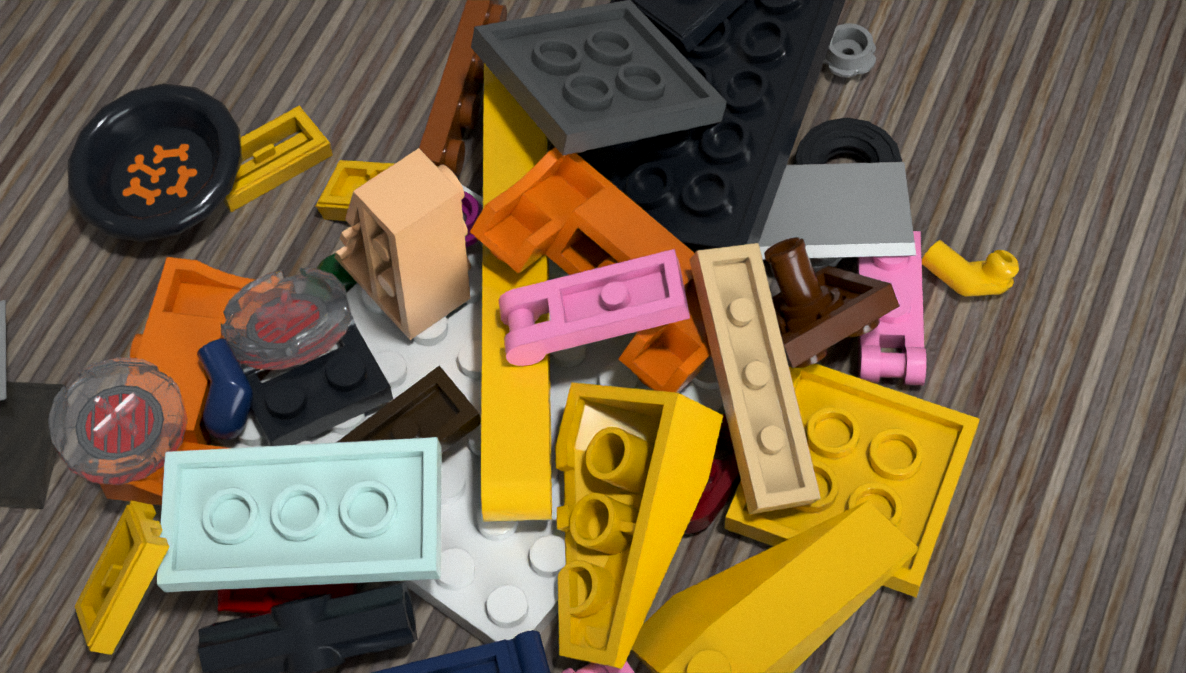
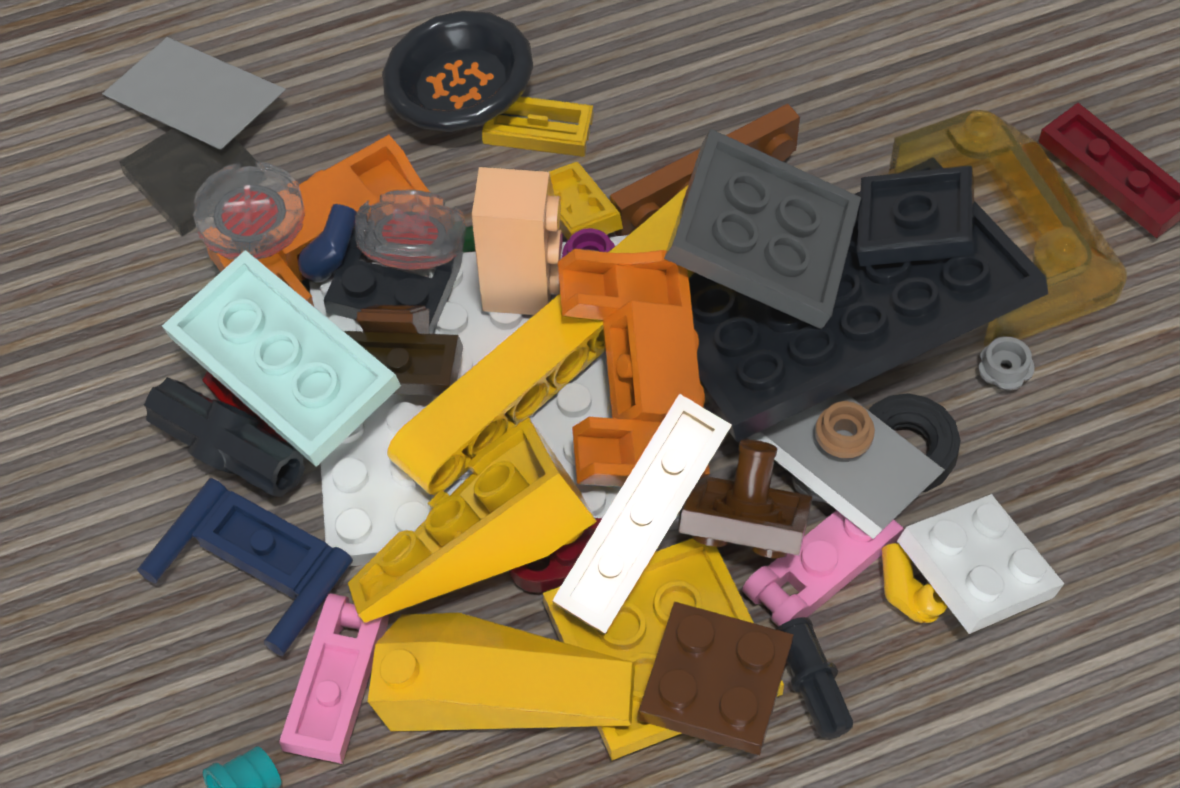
camera: 45 degrees right, 0 degrees up
(121, 577) = (157, 307): yellow tile -> none
(362, 400) = (394, 319): none -> reddish brown slope
(593, 306) = (580, 376): bright pink plate -> none
(810, 176) = (849, 417): none -> medium nougat plate
(934, 457) = (716, 678): none -> reddish brown plate
(986, 396) = (816, 680): none -> black axle
(1004, 208) = (980, 563): none -> white plate

